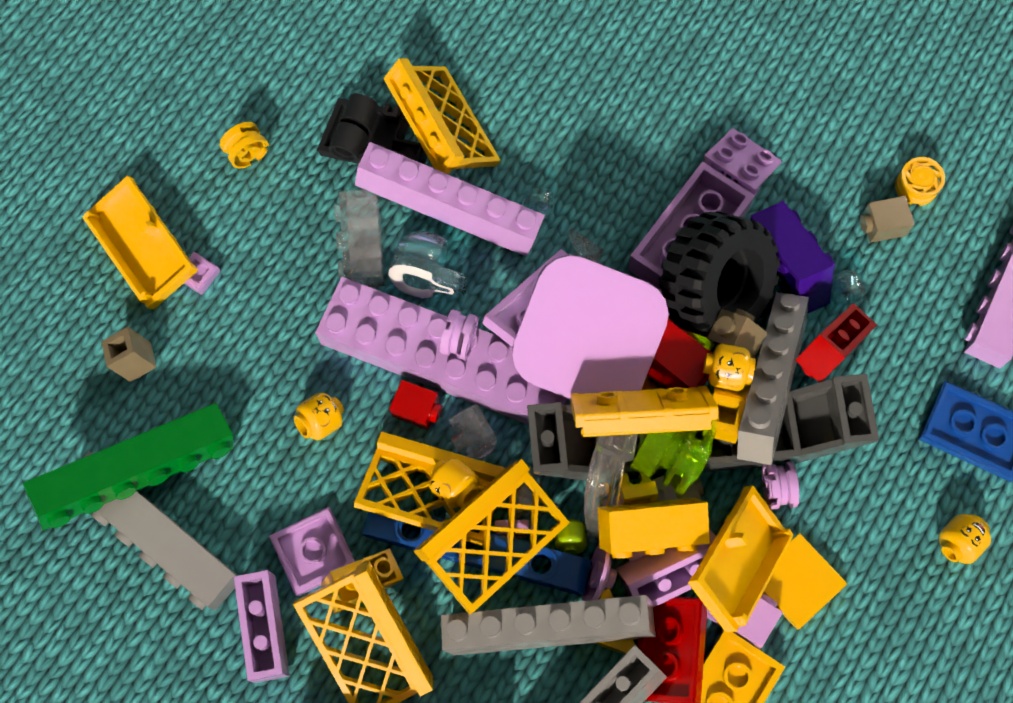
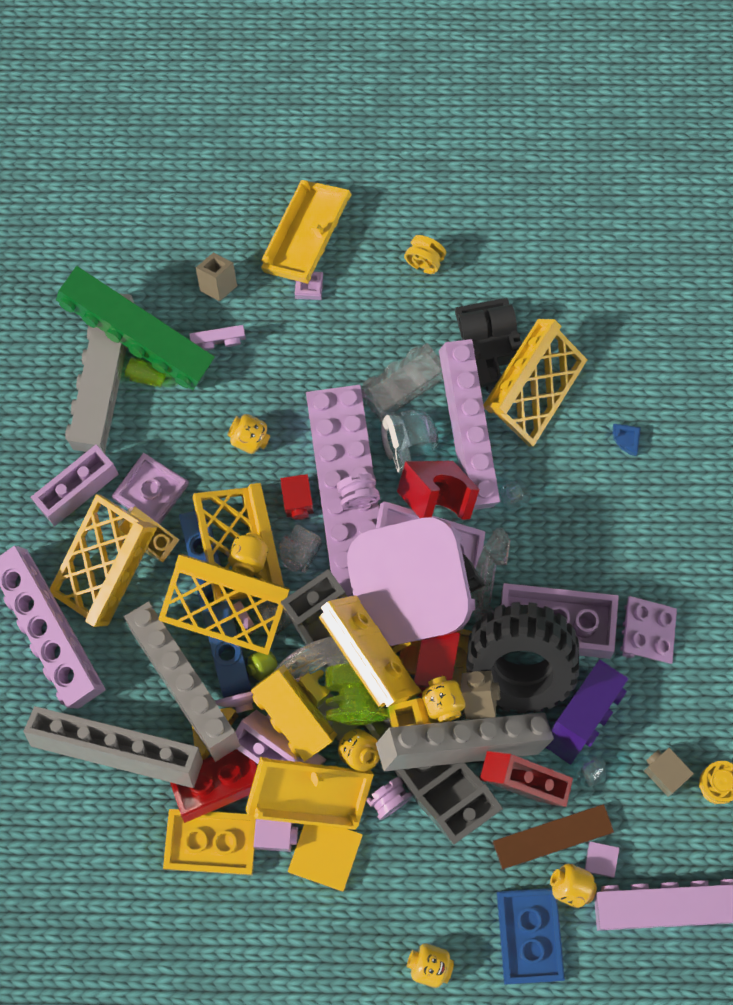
camera: 60 degrees right, 0 degrees up
(182, 487) = (142, 372): none -> clear neon green cone
(201, 377) = (230, 336): none -> lavender plate
(494, 262) = (437, 483): none -> red piece
(544, 76) = (627, 438): none -> blue tile
(721, 484) = (359, 750): none -> yellow head
(893, 356) = (553, 837): none -> reddish brown tile
(937, 325) = (601, 859): none -> lavender tile
(953, 362) = (573, 885): none -> yellow head

